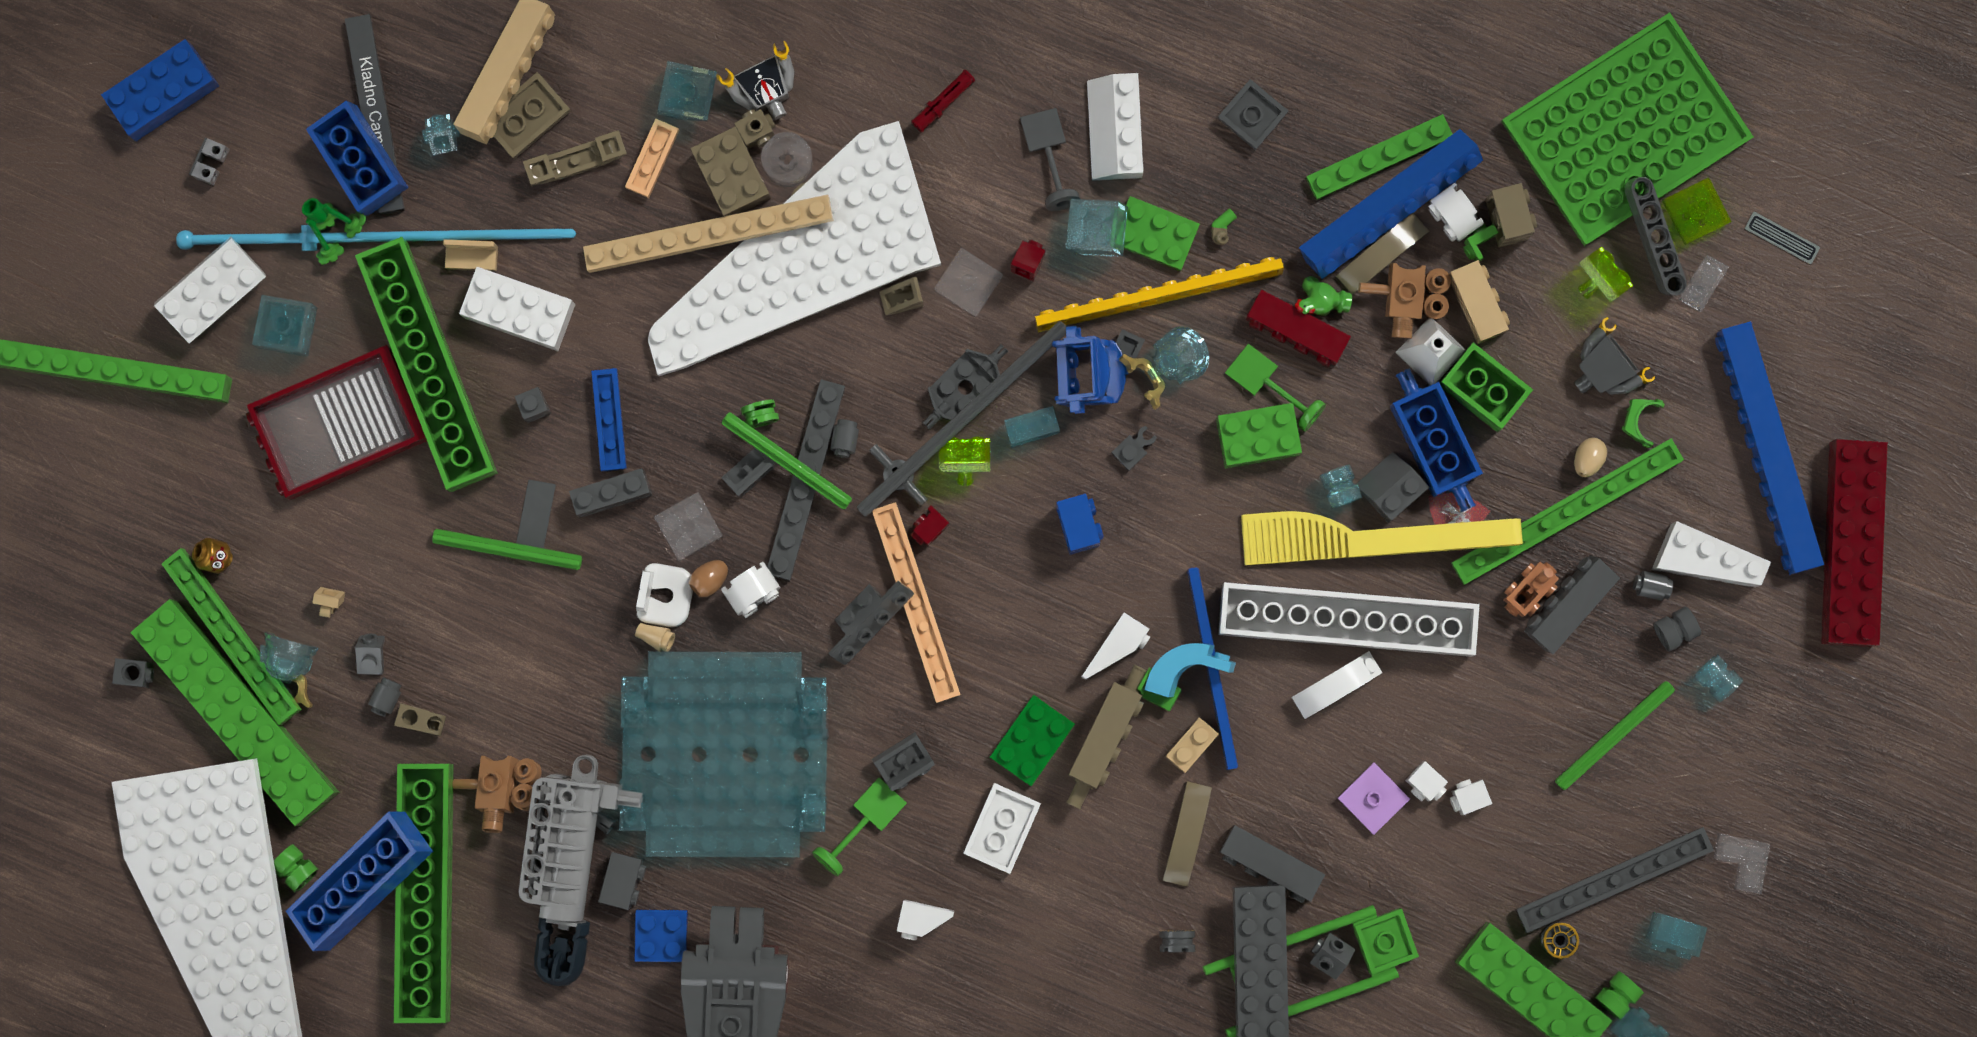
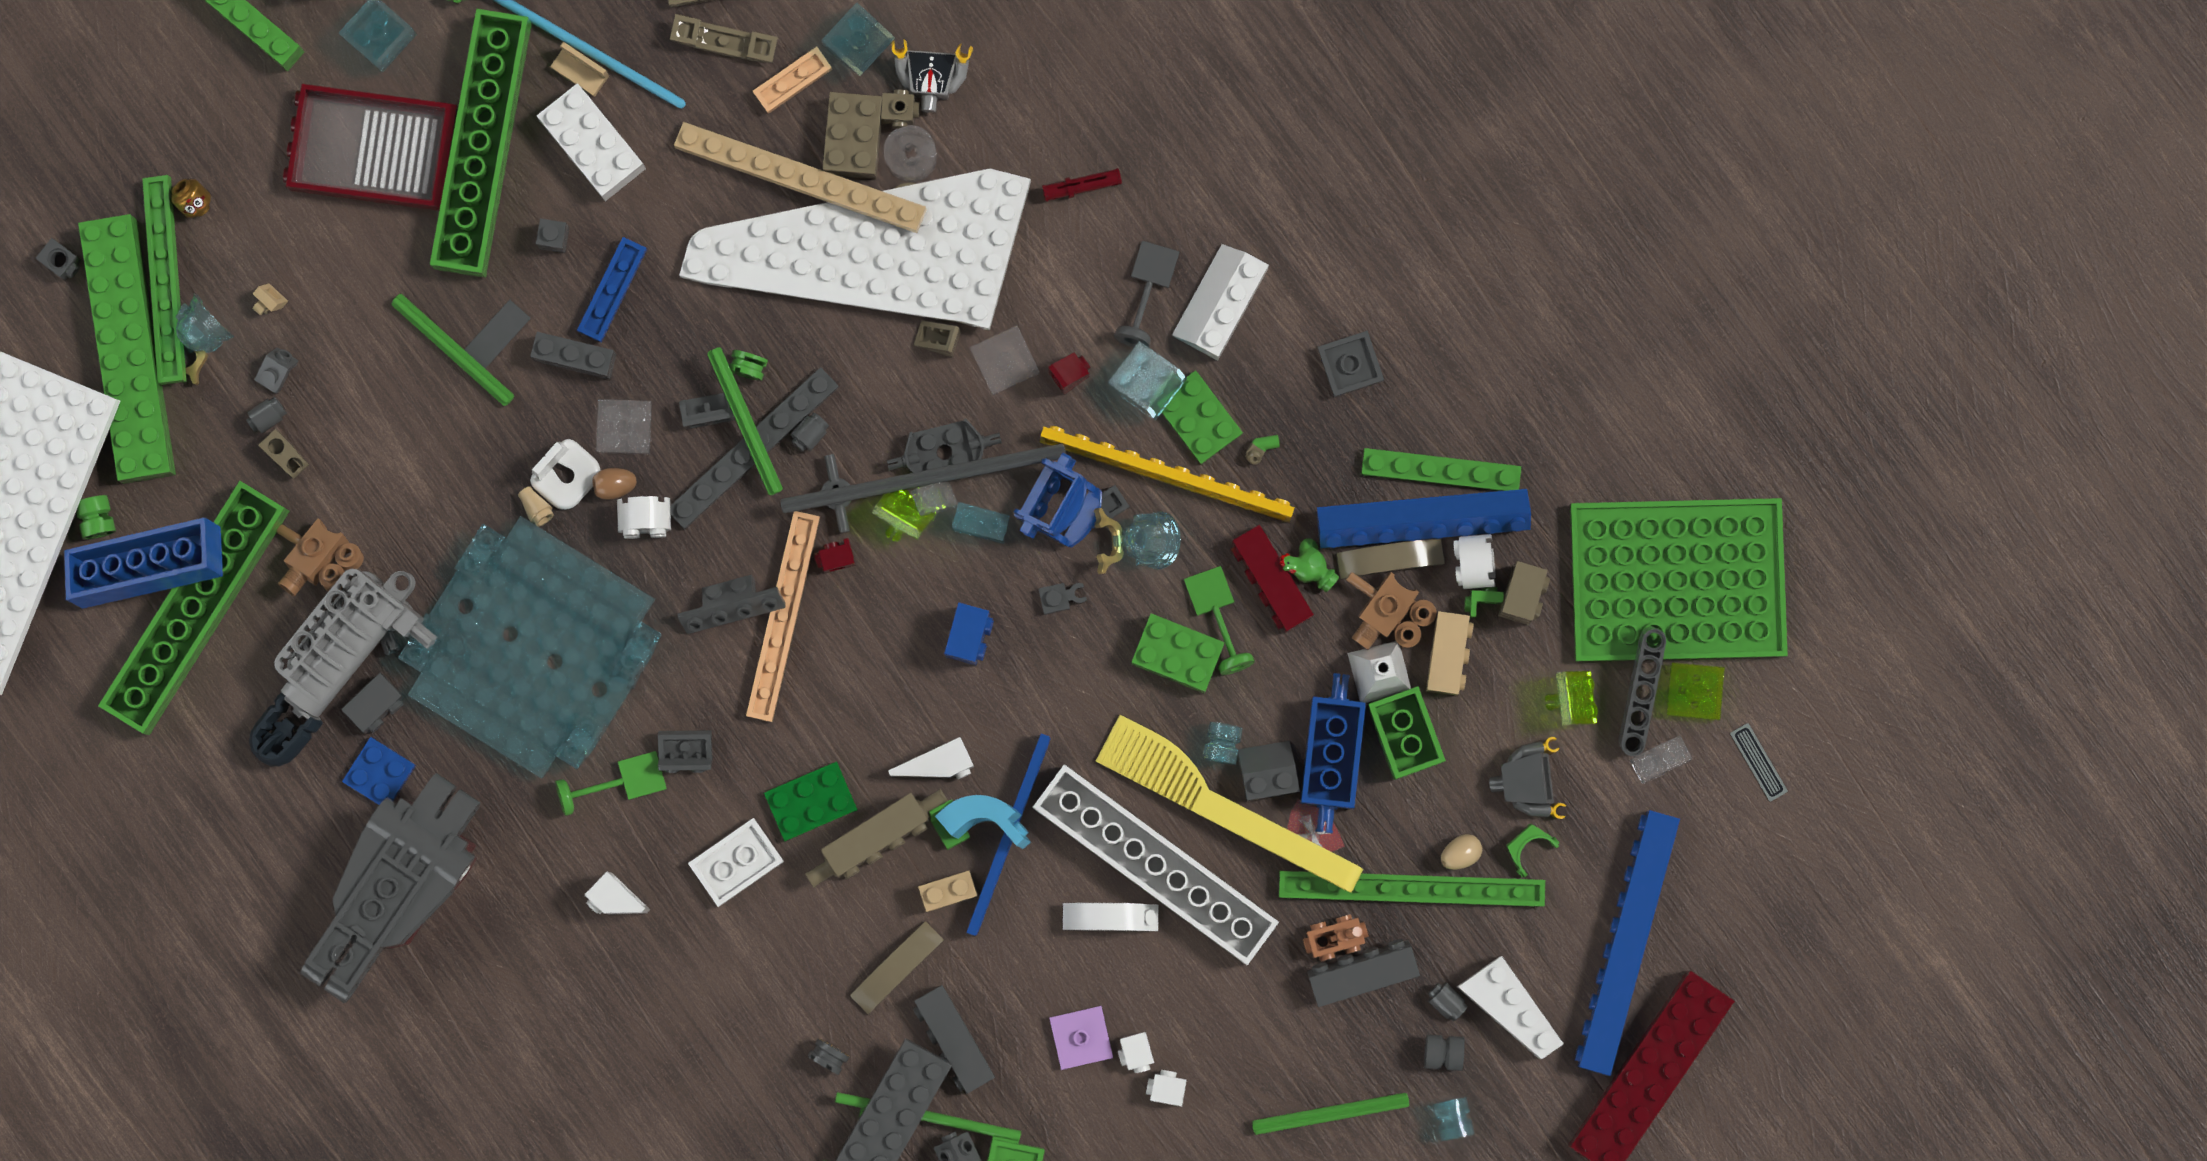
camera: 30 degrees right, 0 degrees up
(982, 429) = (934, 498): none -> clear slope

